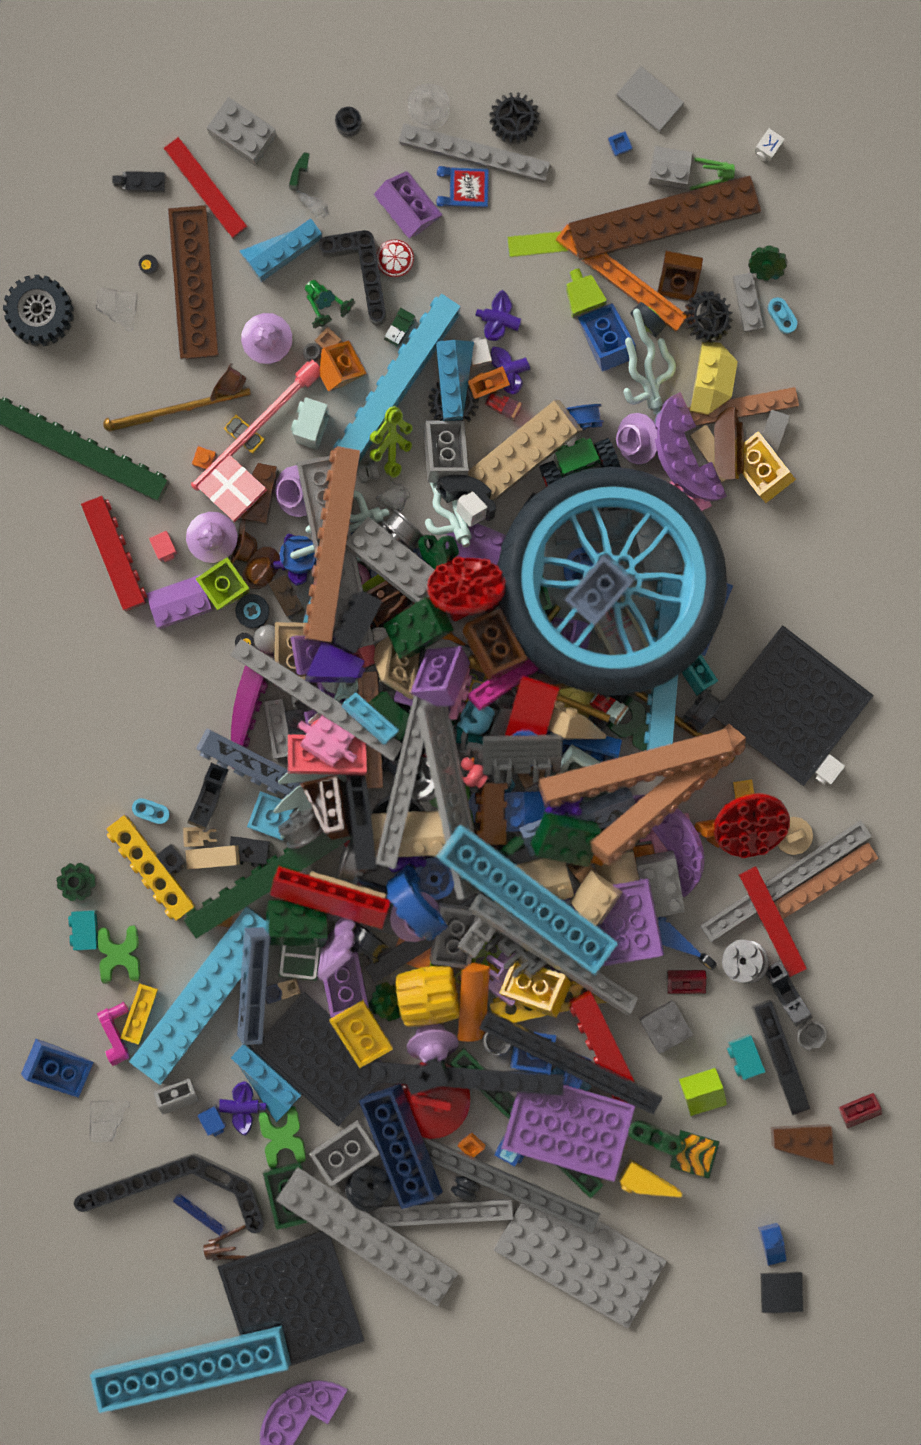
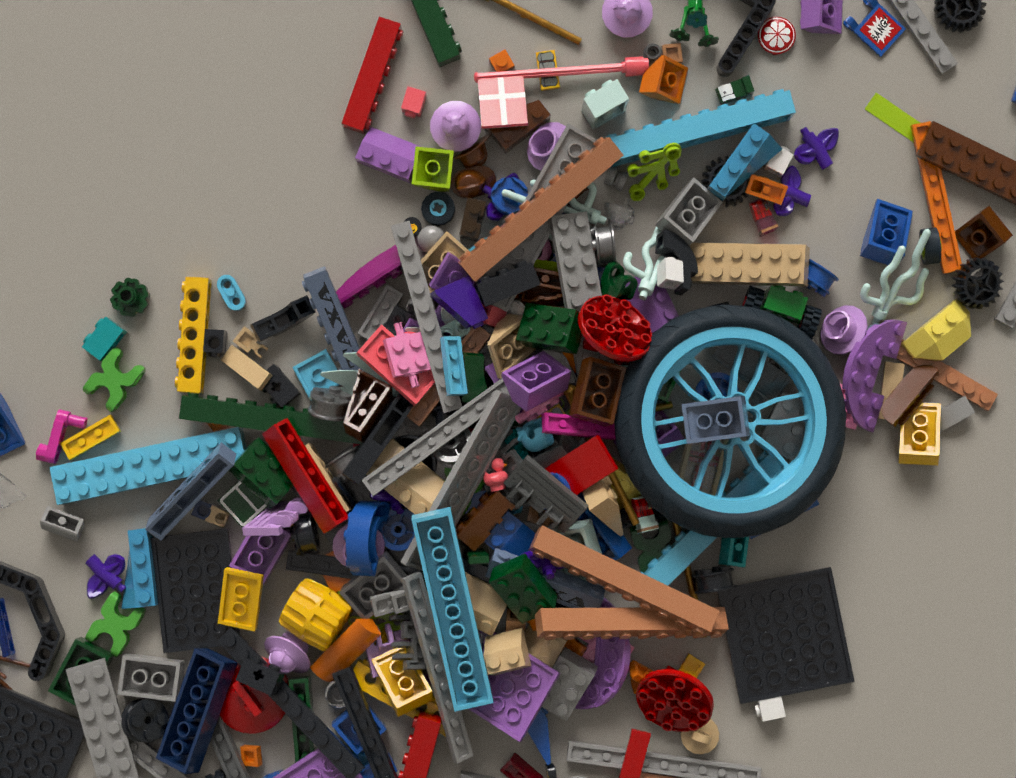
camera: 45 degrees right, 0 degrees up
(212, 1121) = (74, 566): blue brick -> none
(229, 384) = (568, 21): reddish brown piece -> none
(385, 1002) = (280, 589): dark green plant -> none
(583, 293) = (897, 184): lime torso -> none

